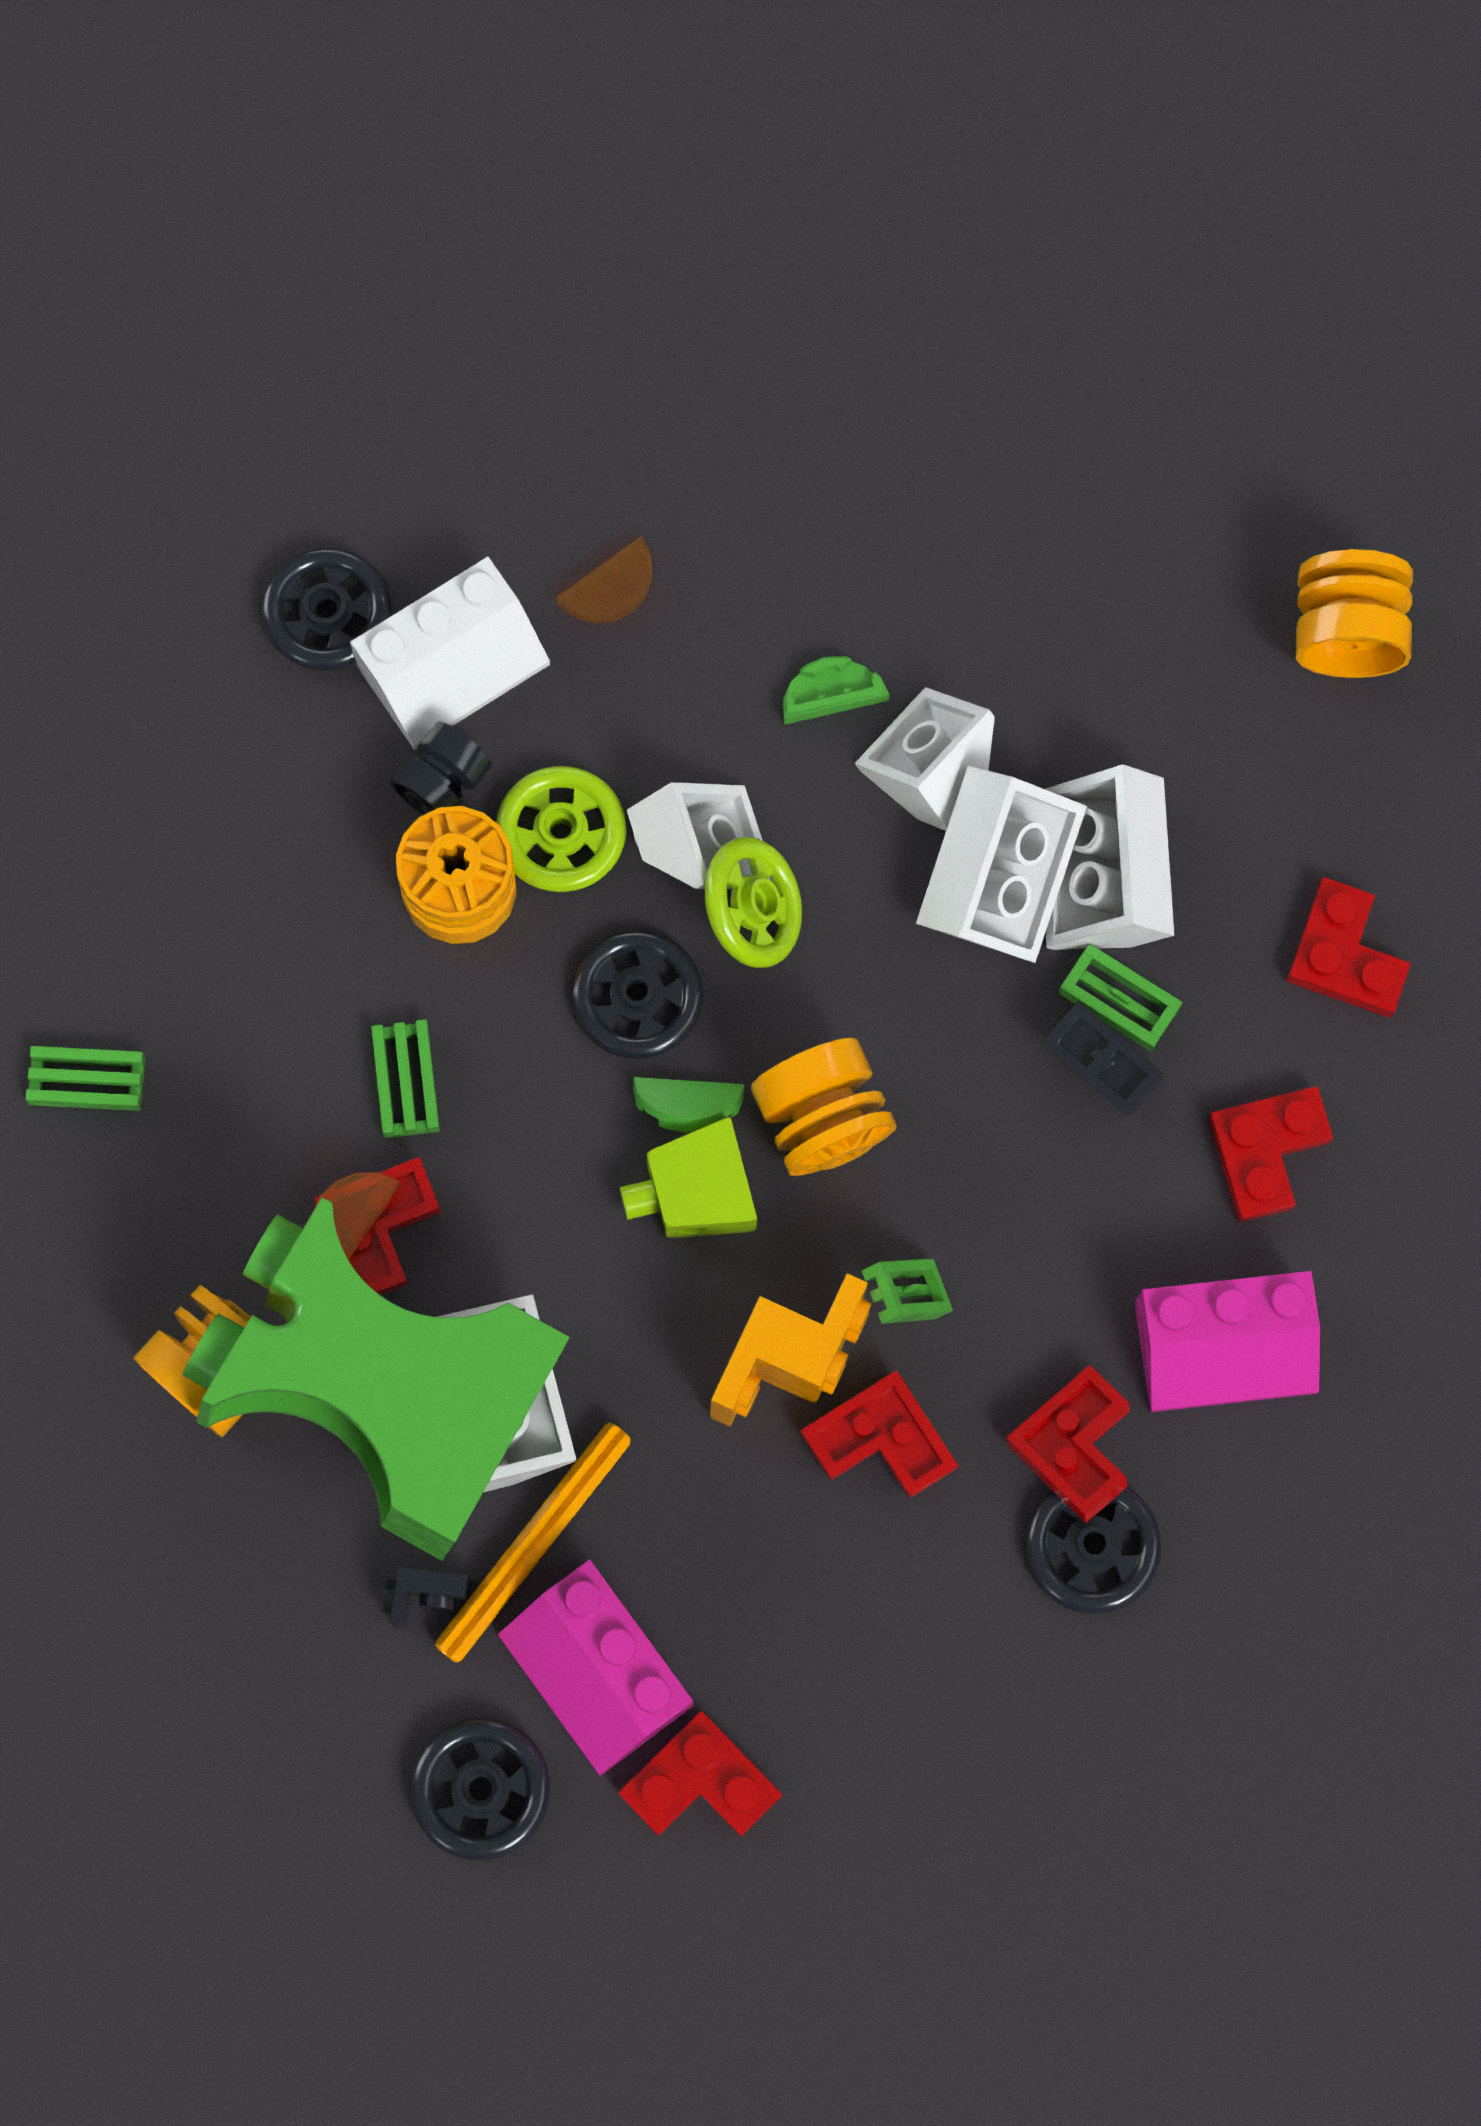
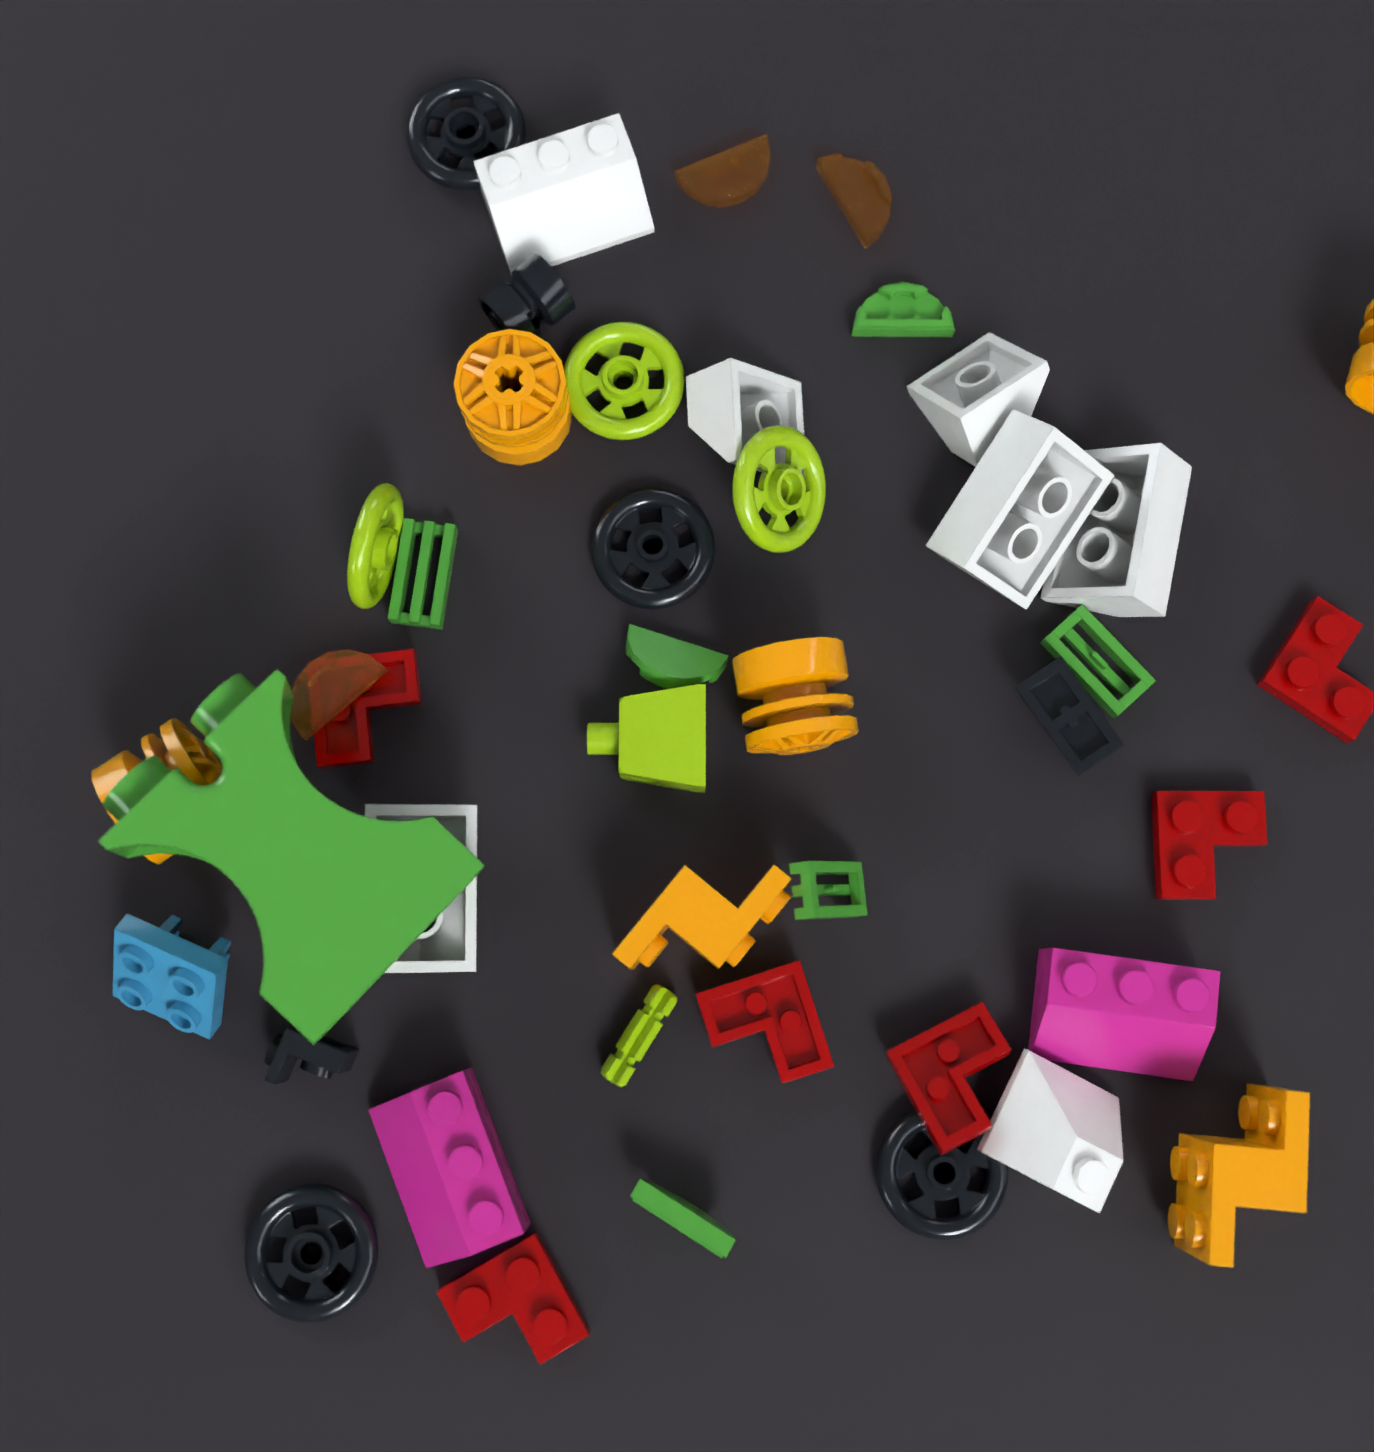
camera: 20 degrees right, 5 degrees up
(38, 1074) = (99, 489): bright green tile -> none
(263, 1547) = (170, 974): none -> dark azure plate
(356, 1061) = (375, 546): none -> lime plate
(533, 1542) = (422, 1032): light orange axle -> none
(754, 574) = (860, 193): none -> clear orange tile
(754, 1488) = (639, 1035): none -> lime axle
(846, 1651) = (684, 1217): none -> bright green tile
(1193, 1472) = (1057, 1131): none -> white slope
(1377, 1460) = (1251, 1172): none -> light orange bracket

